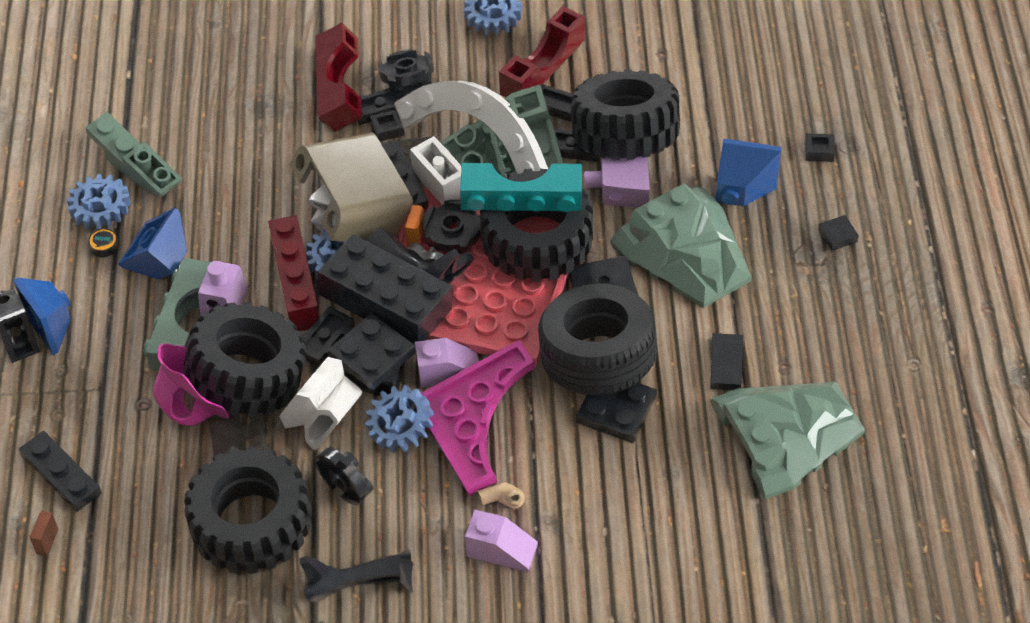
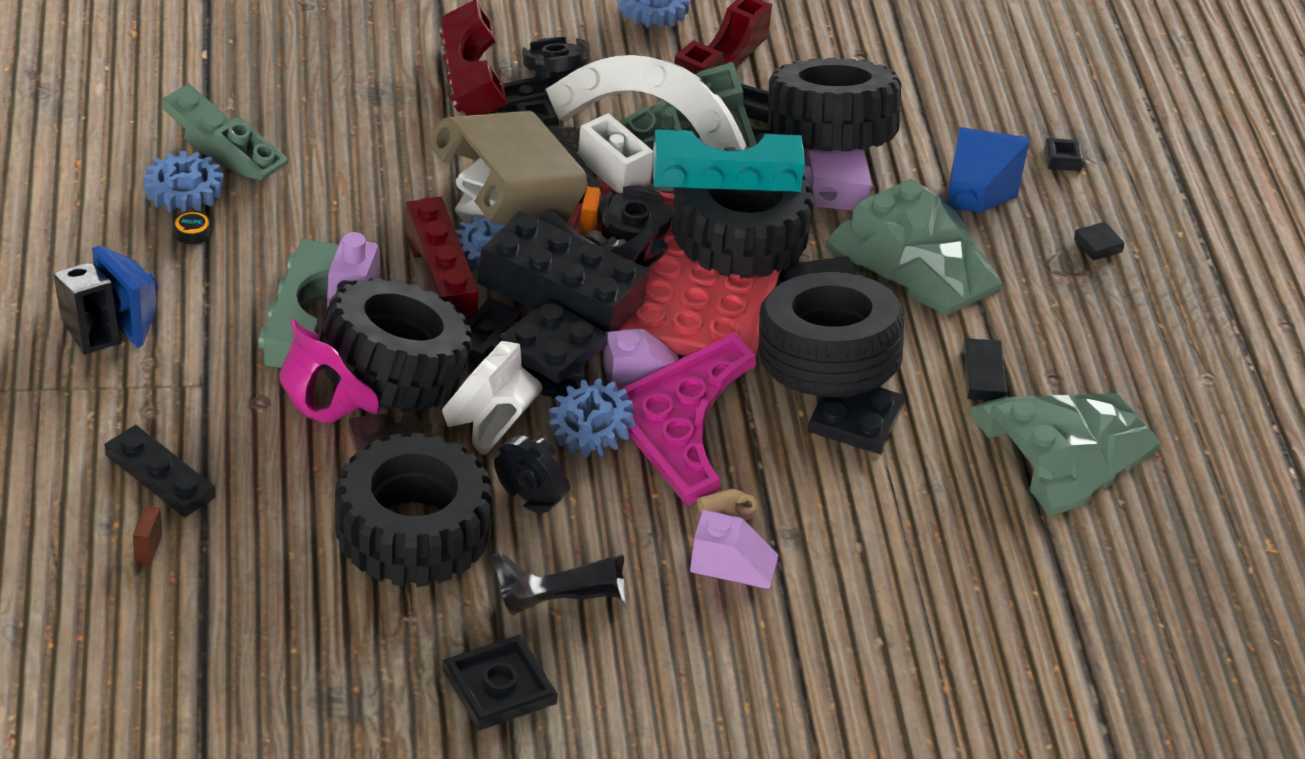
camera: 10 degrees left, 10 degrees down
(157, 247) = (264, 231): blue slope -> none

